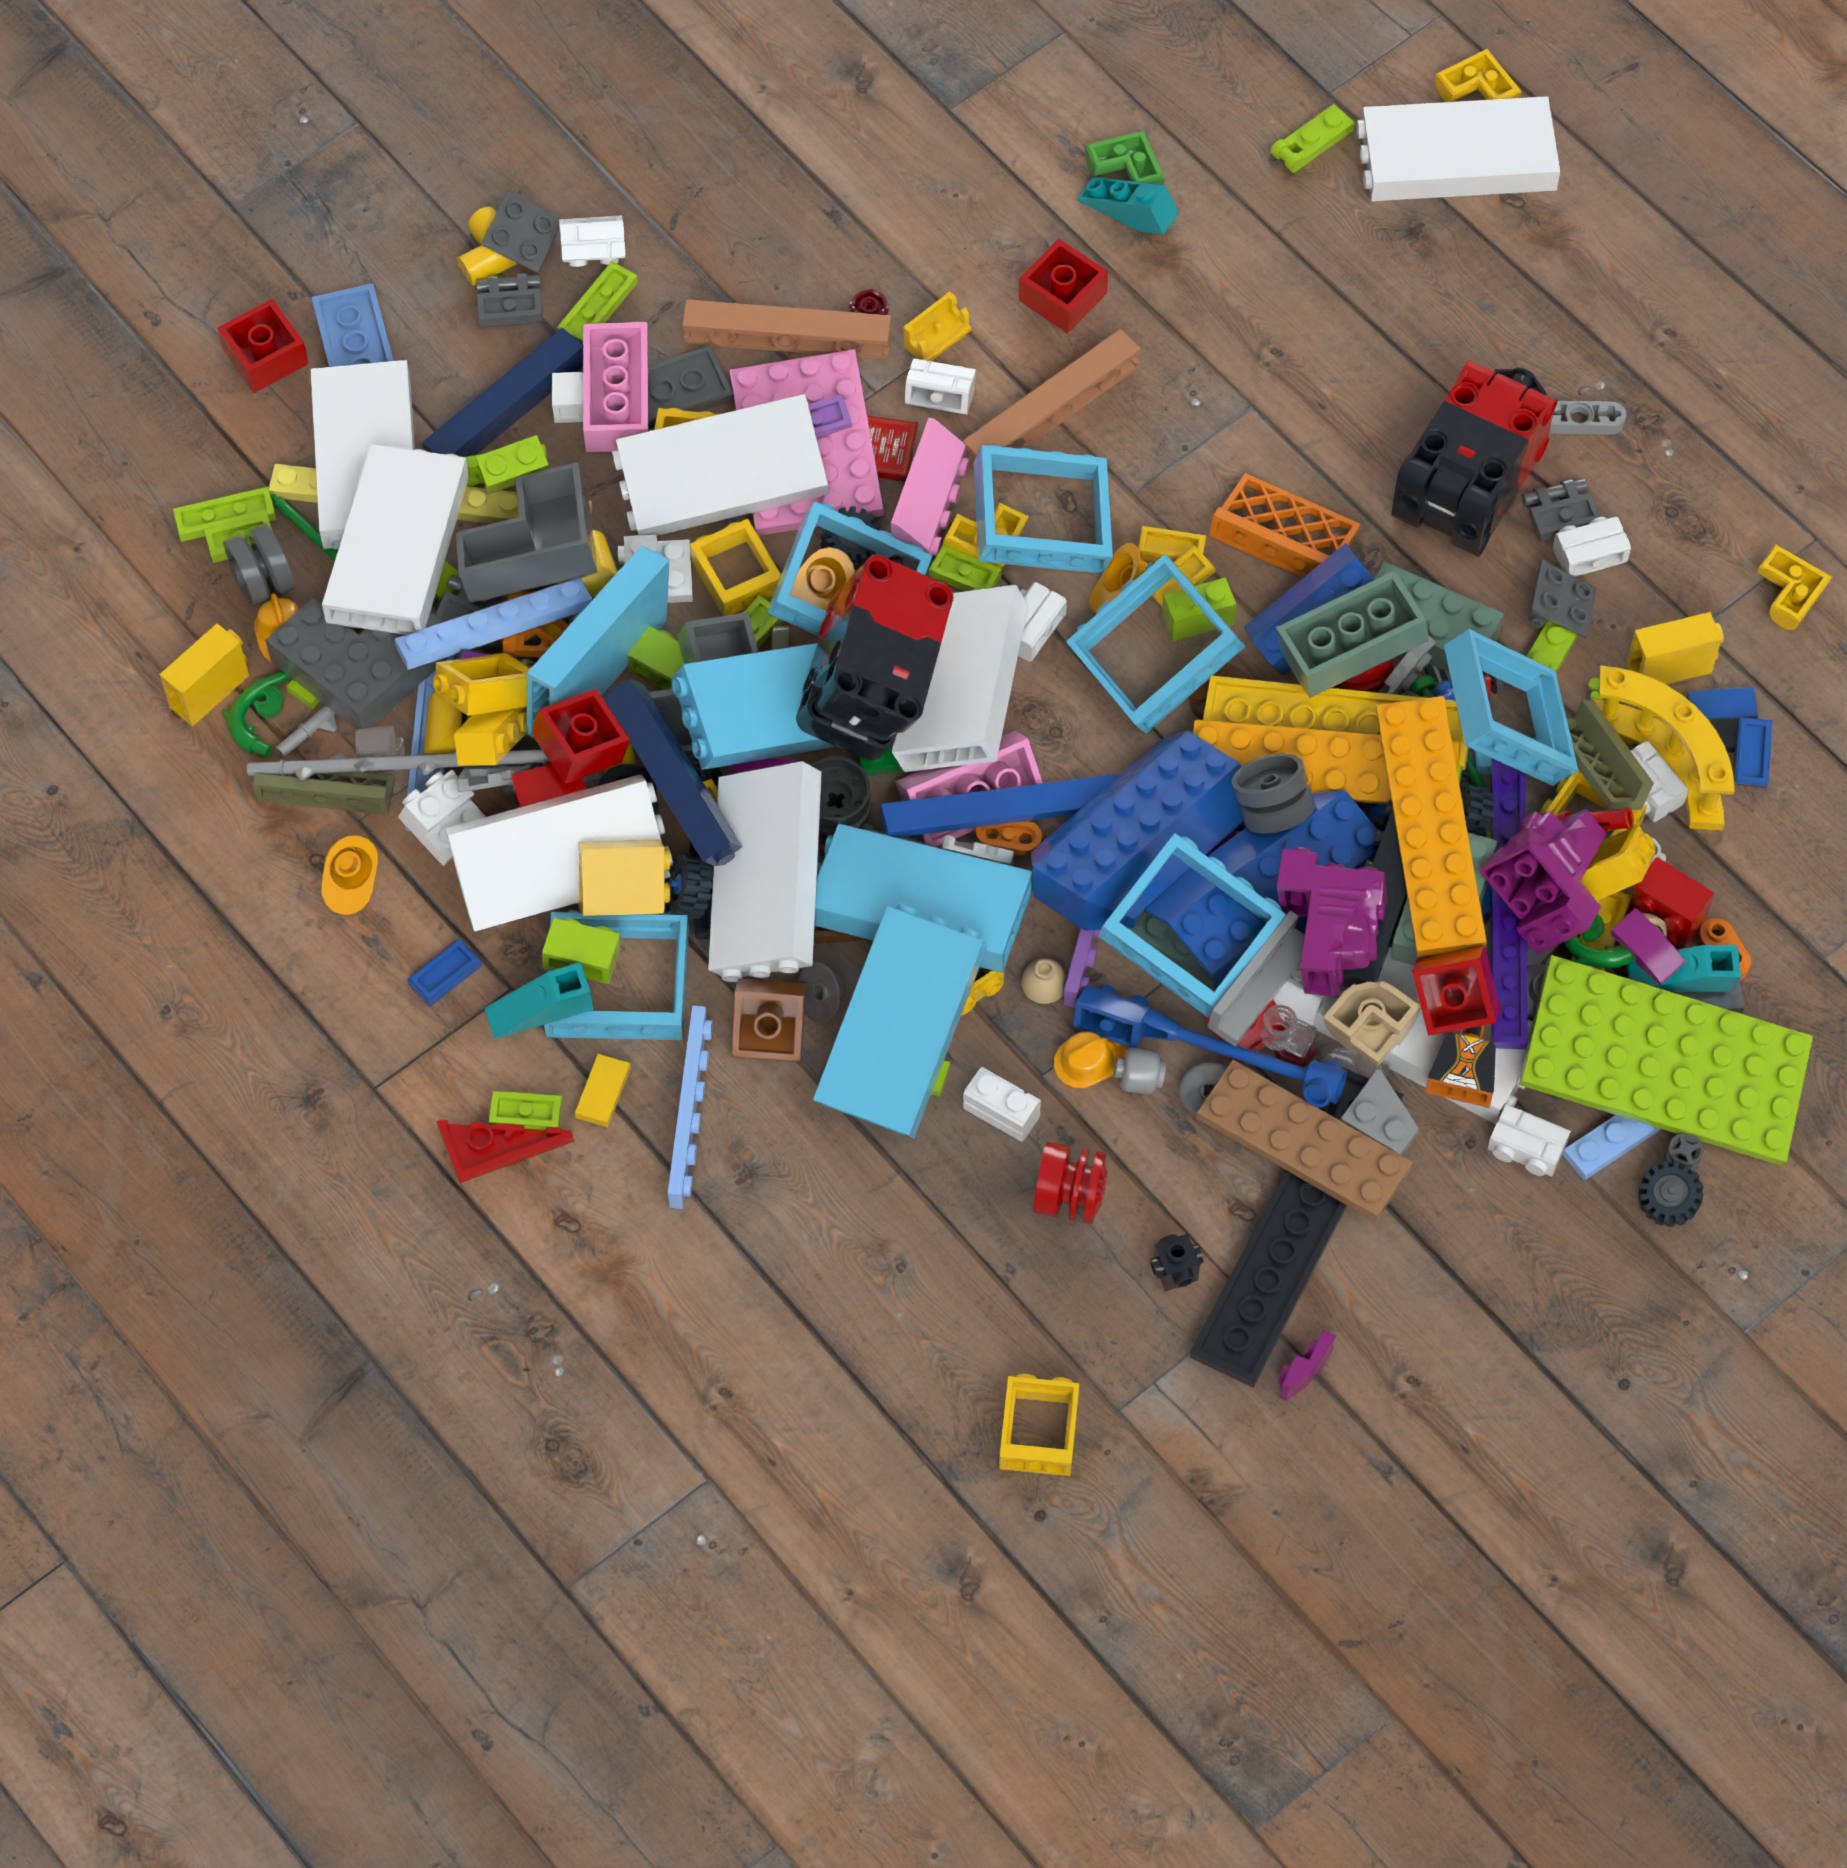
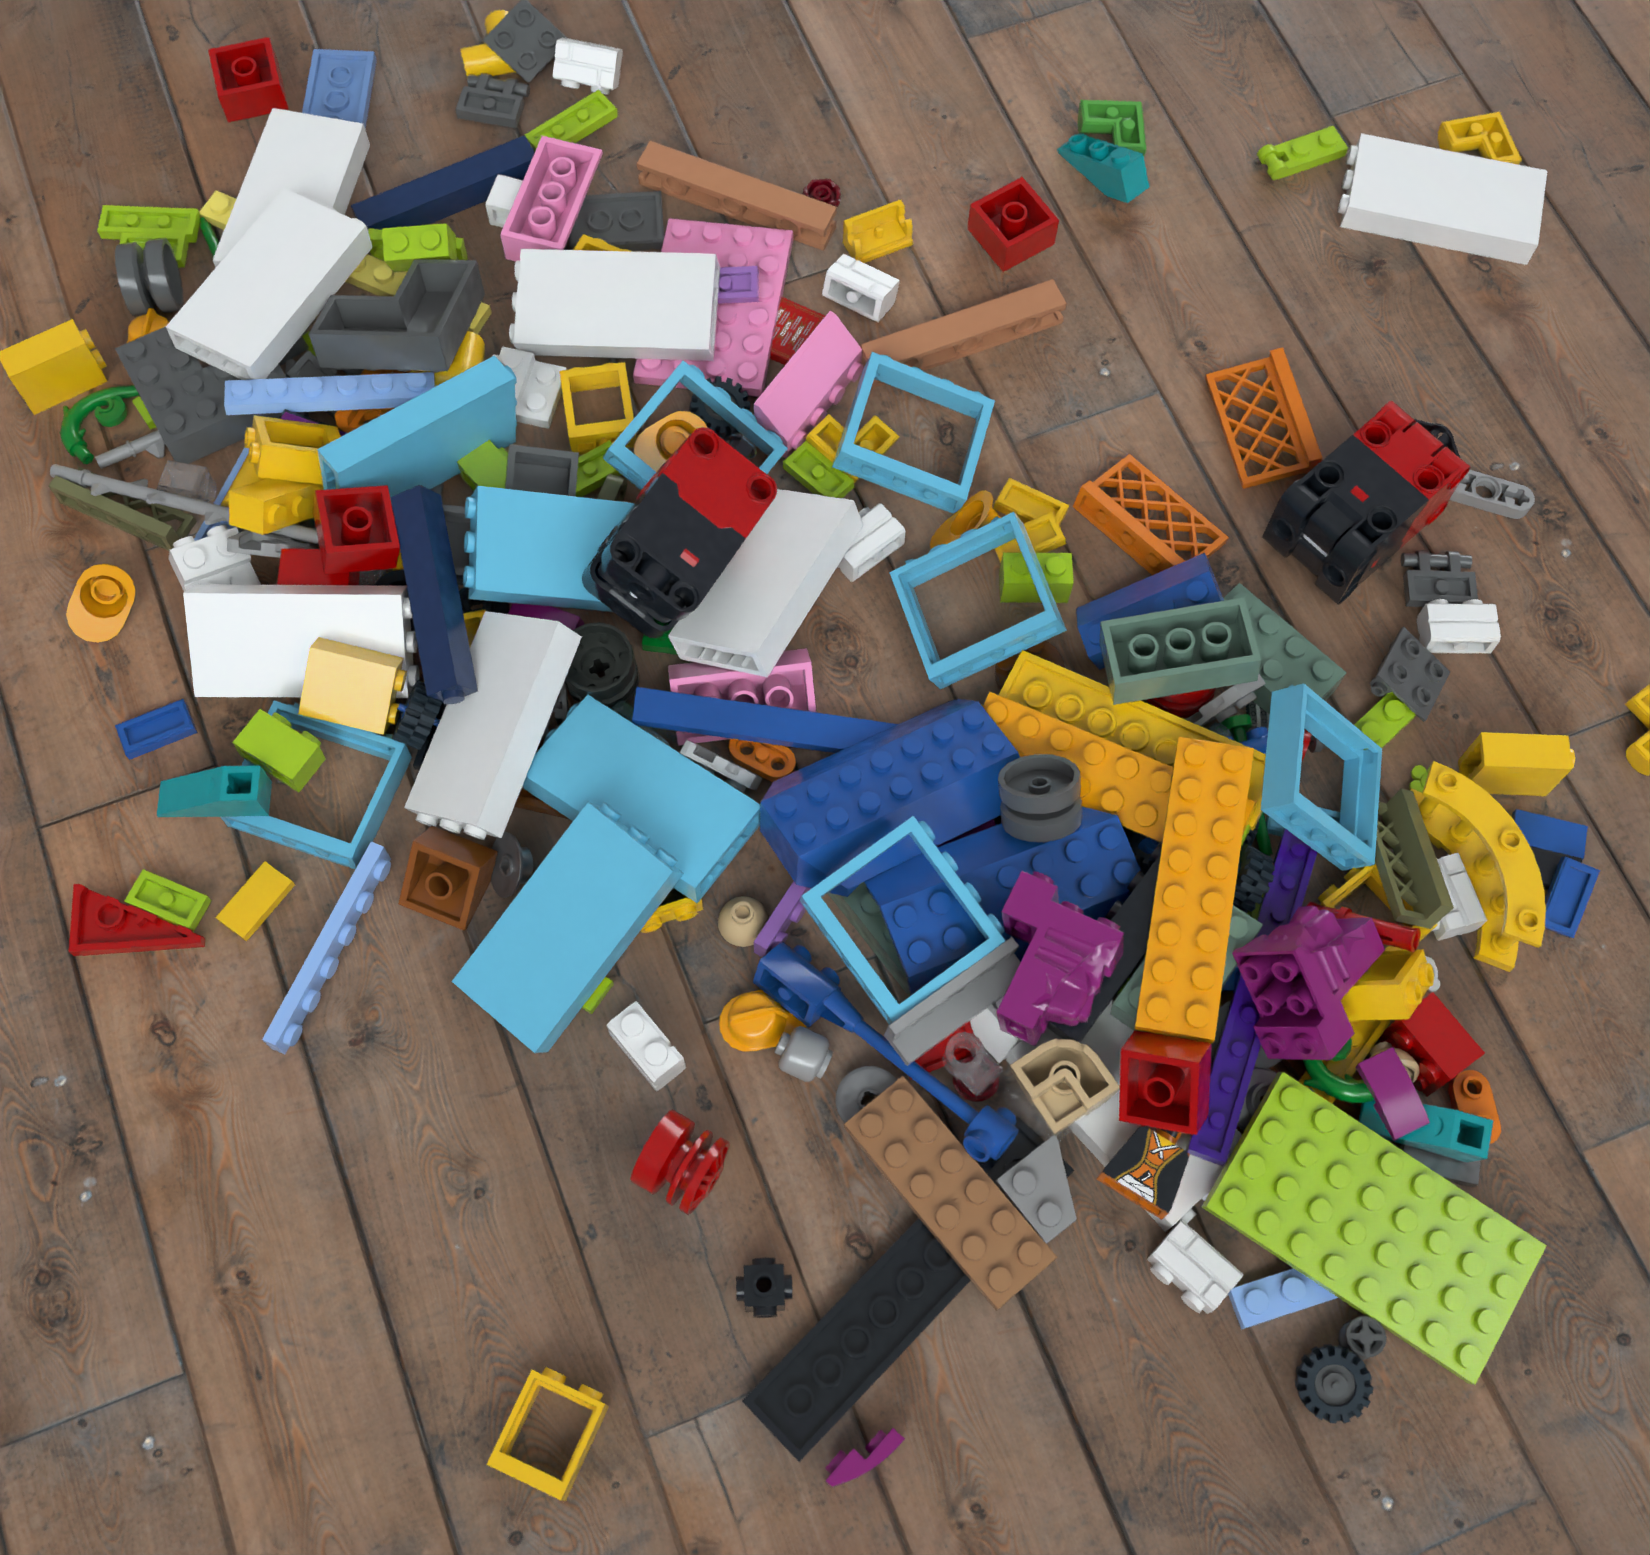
camera: 15 degrees right, 5 degrees up
(1376, 386) = (1292, 412): none -> orange fence

